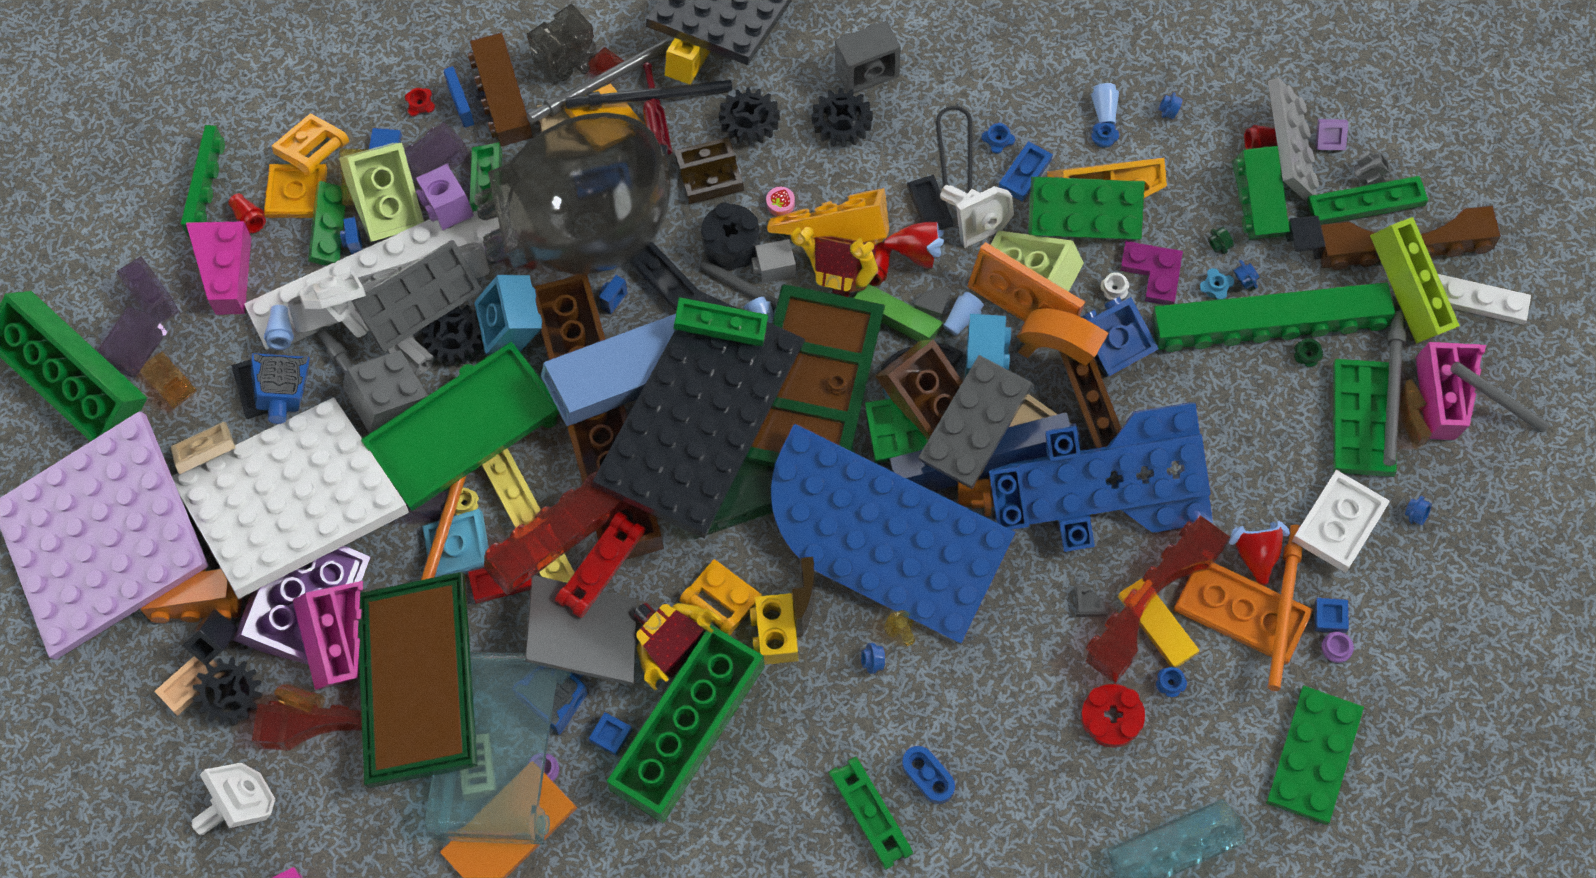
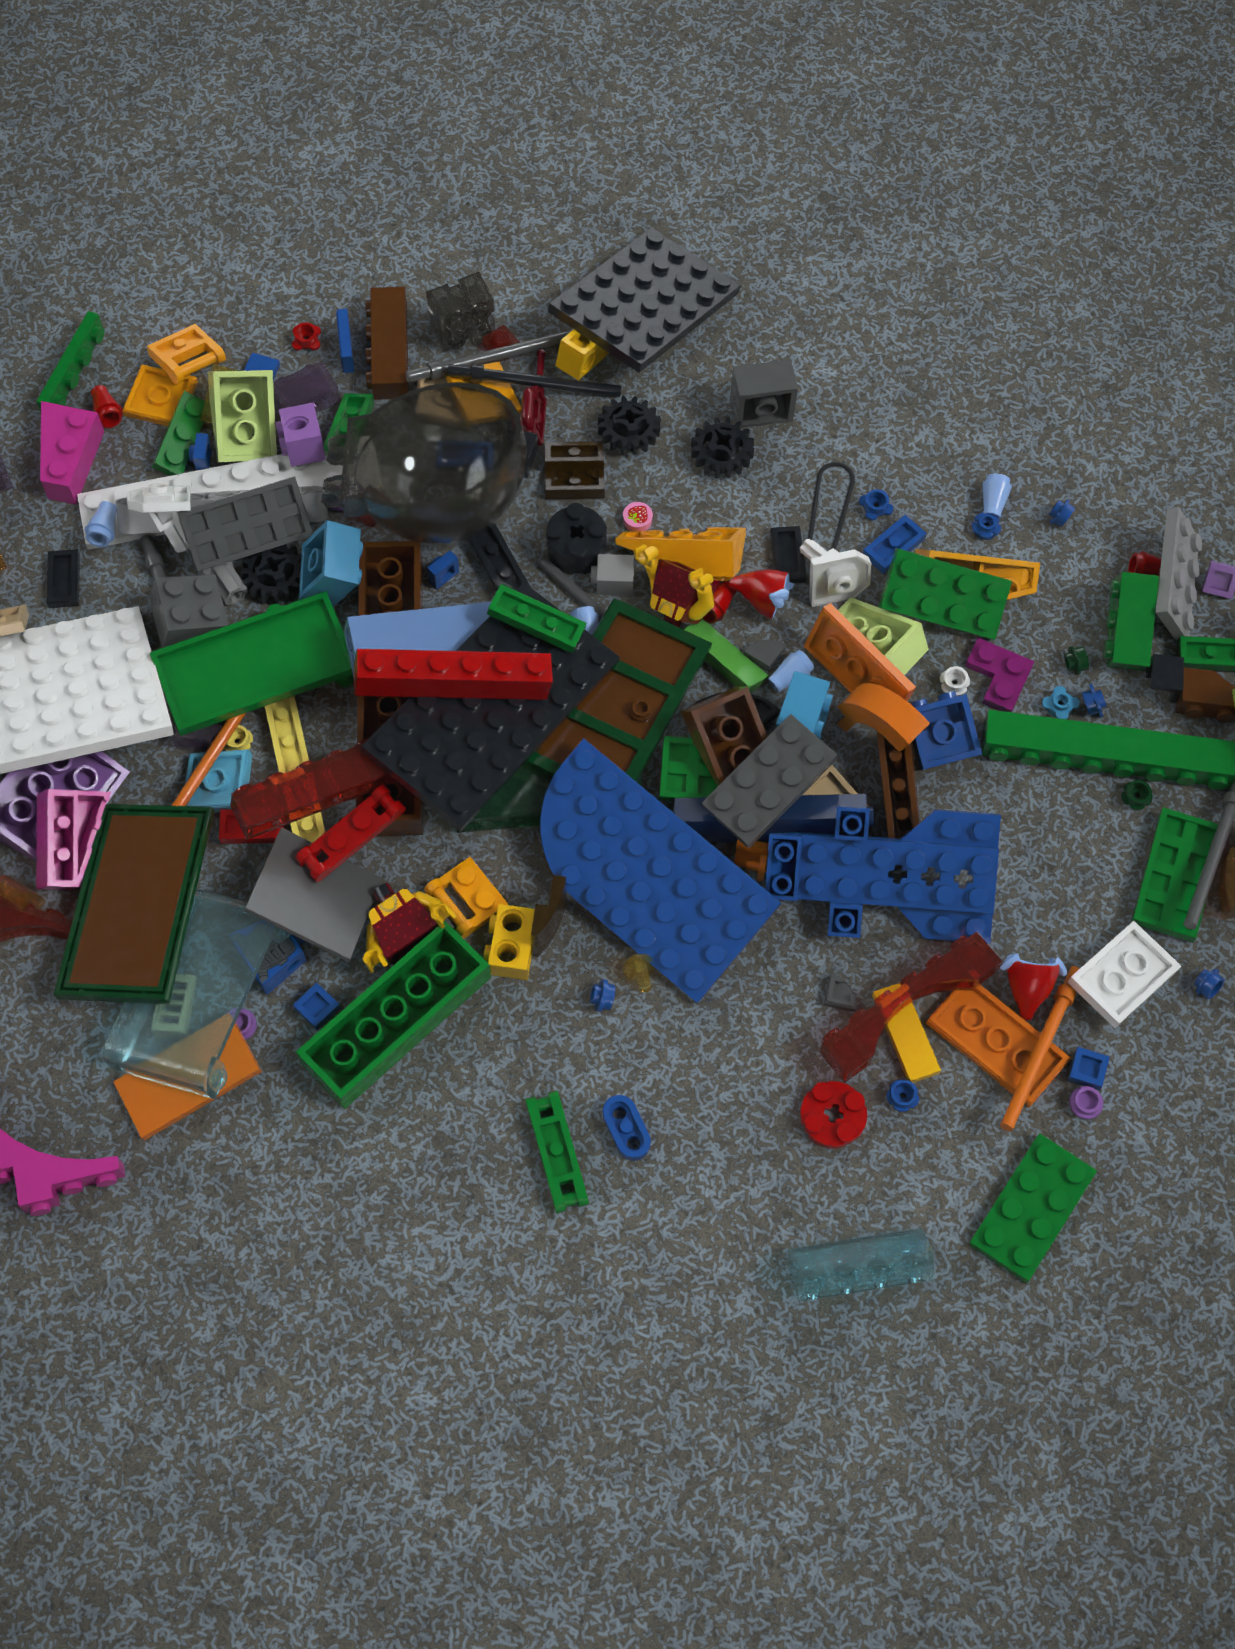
camera: 10 degrees right, 0 degrees up
(278, 383) = (88, 579): torso -> none
(659, 393) = (452, 674): none -> red brick

